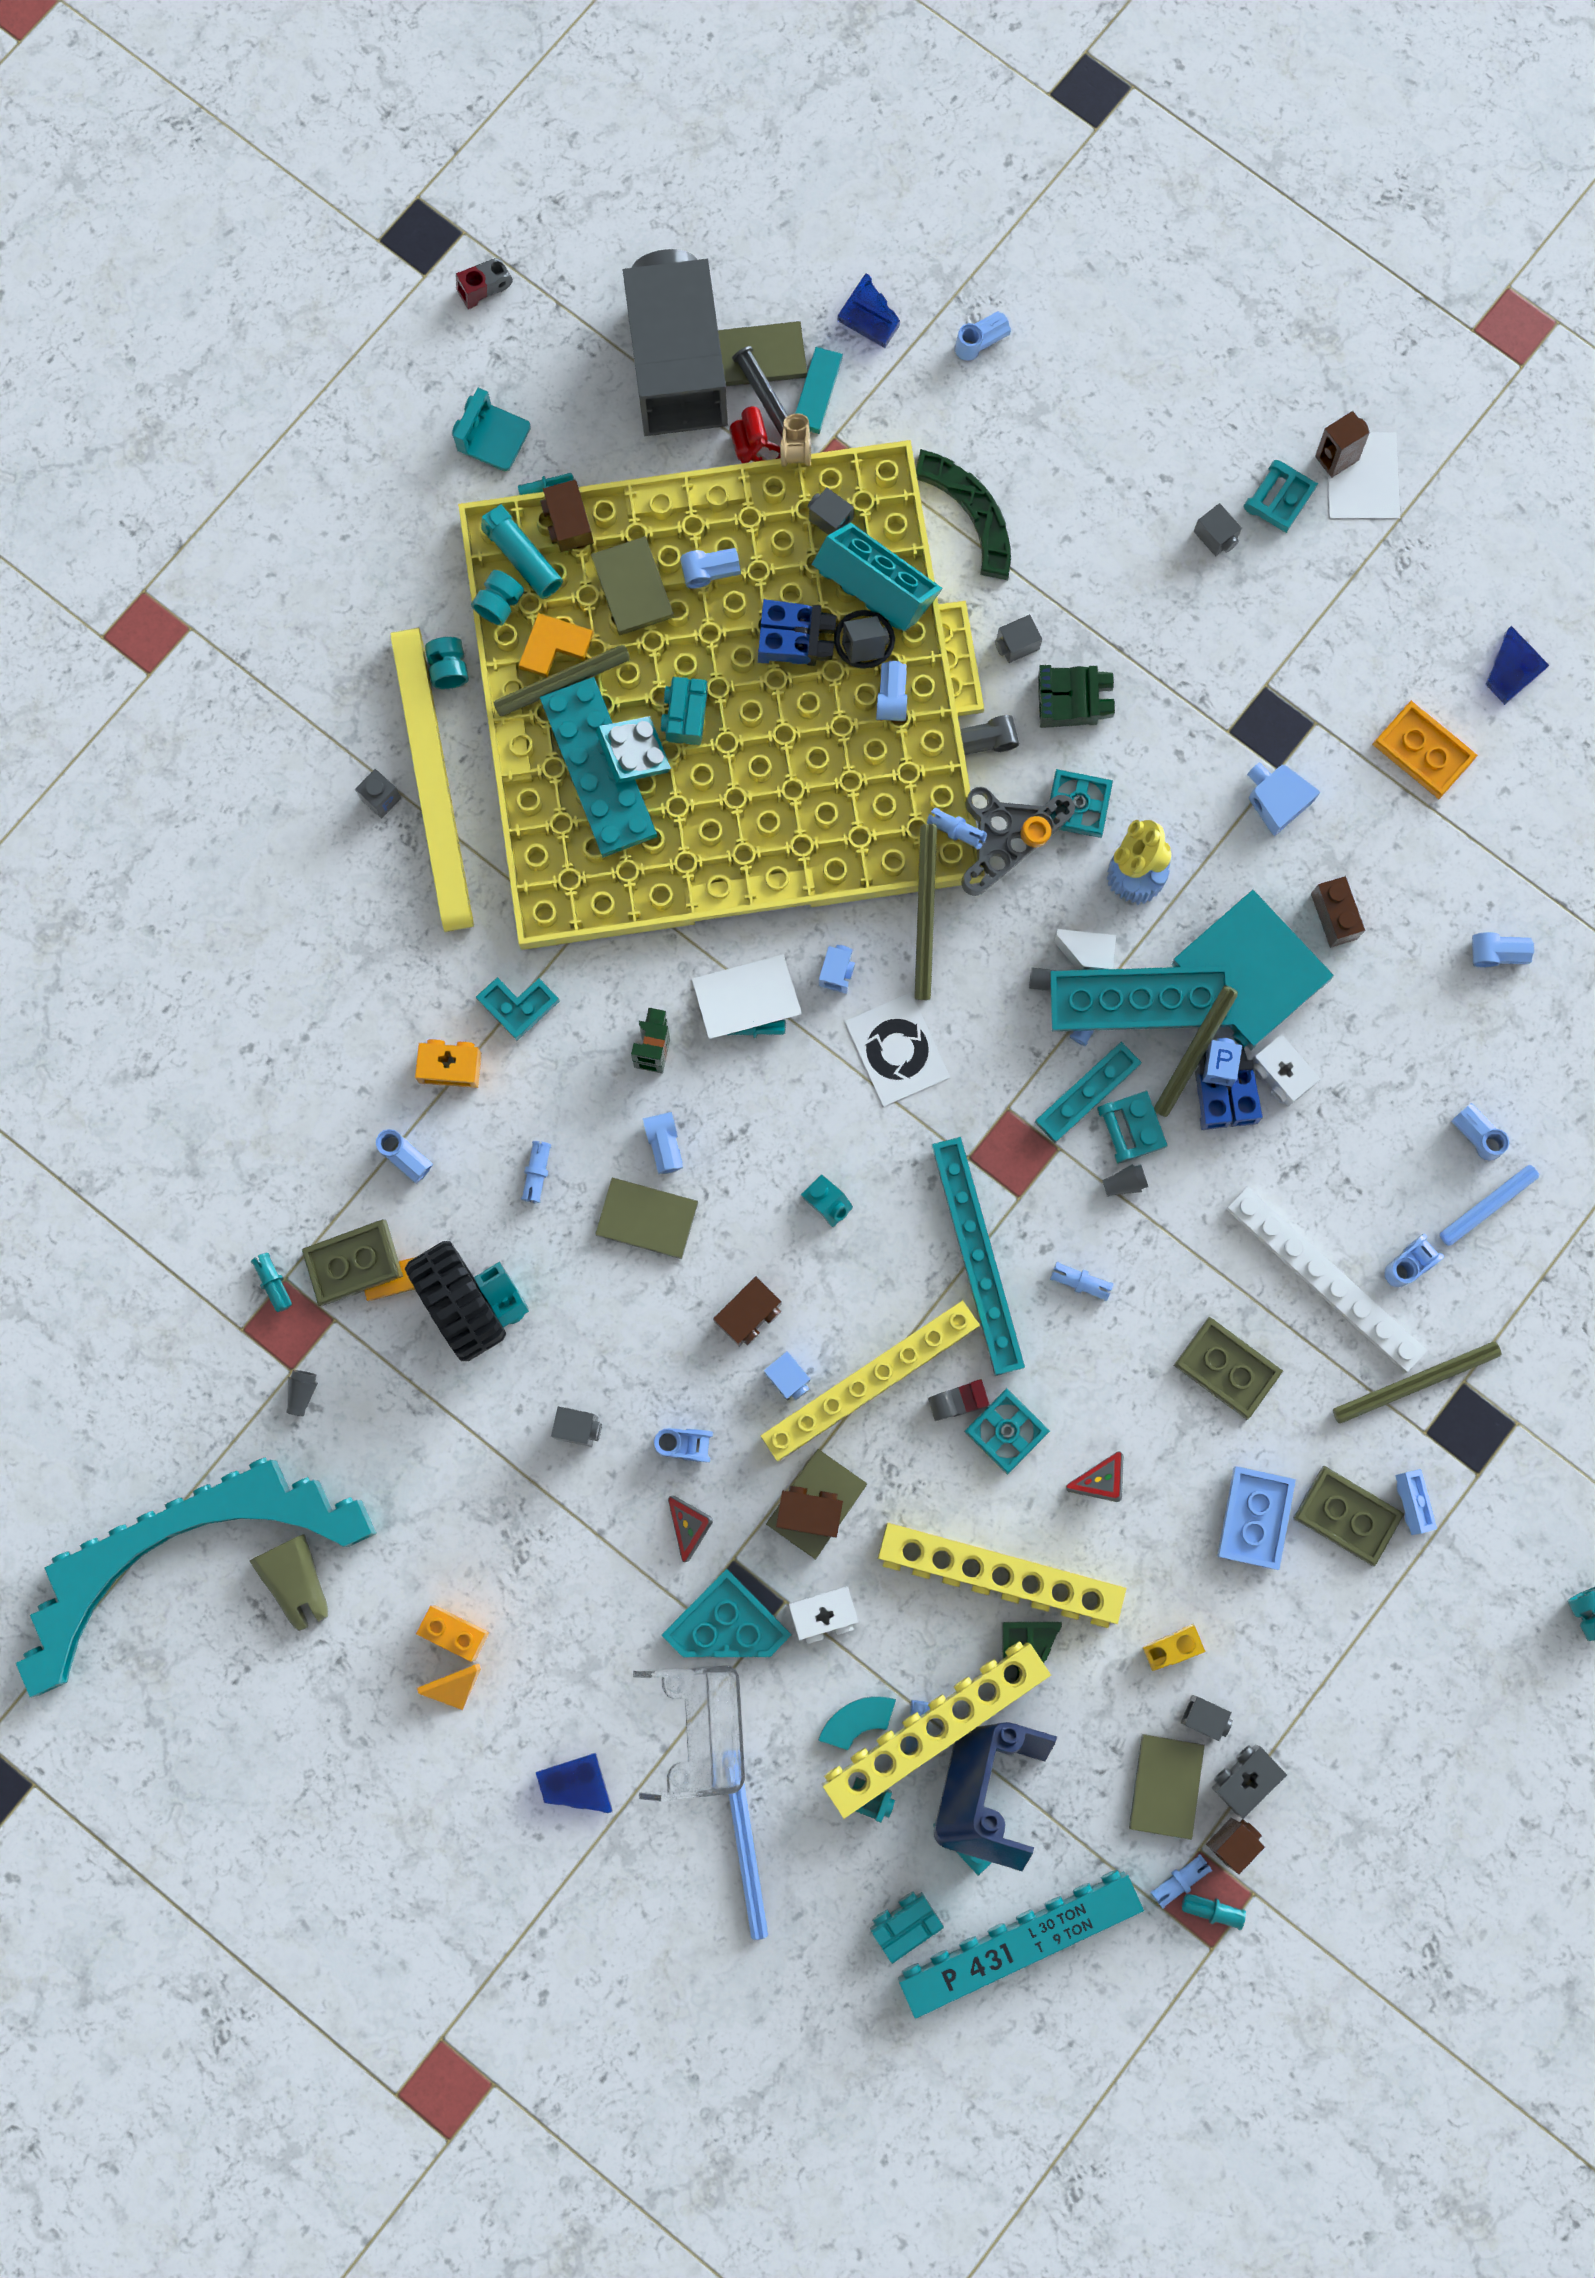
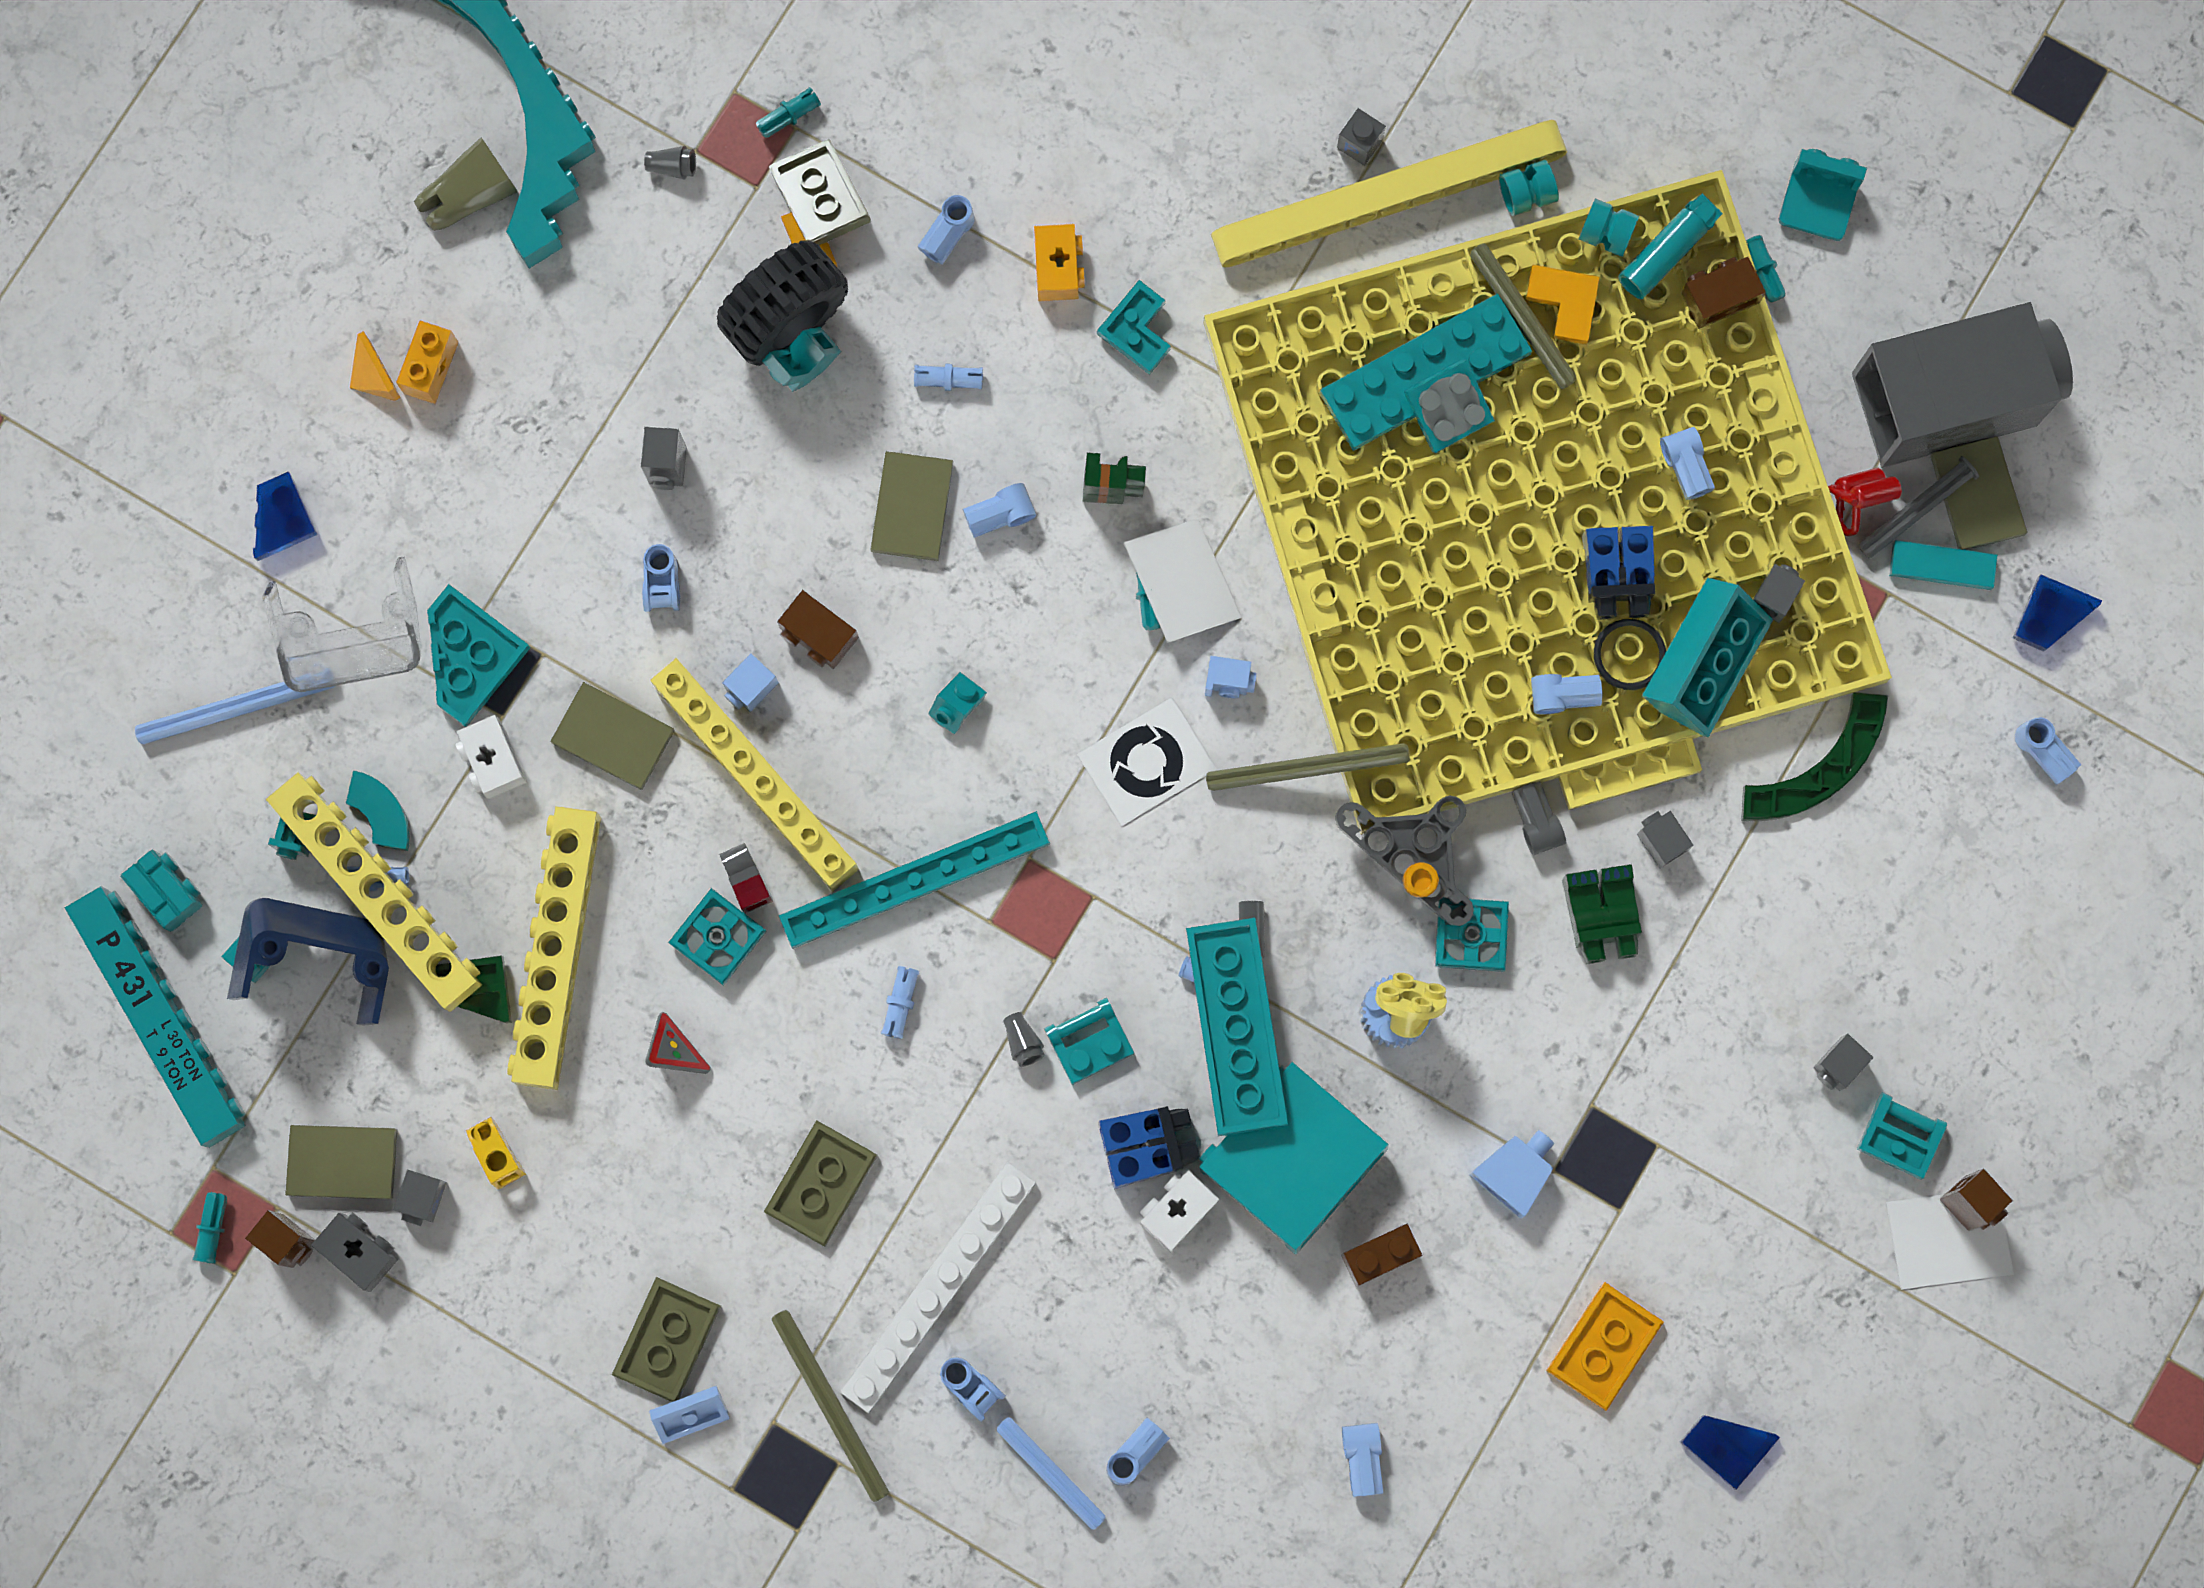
camera: 85 degrees right, 0 degrees up
(482, 281) = (2010, 158): leg -> none
(632, 585) = (1651, 379): olive tile -> none
(685, 710) = (1506, 458): teal brick -> none
(689, 1526) = (572, 598): piece -> none
(796, 440) = (1862, 541): tan piece -> none
(809, 1512) = (598, 724): reddish brown brick -> none
(864, 639) = (1624, 651): dark grey brick -> none
(957, 828) = (1409, 786): light blue pin -> none
(1087, 949) = (1290, 965): white slope -> none
(1088, 1092) = (1122, 984): teal plate -> none
(1181, 1881) = (239, 1188): light blue pin -> none
(1196, 1051) = (1182, 1096): olive axle -> none
(1222, 1062) = (1172, 1128): light blue brick -> none
(1256, 1518) = (650, 1231): light blue plate -> none

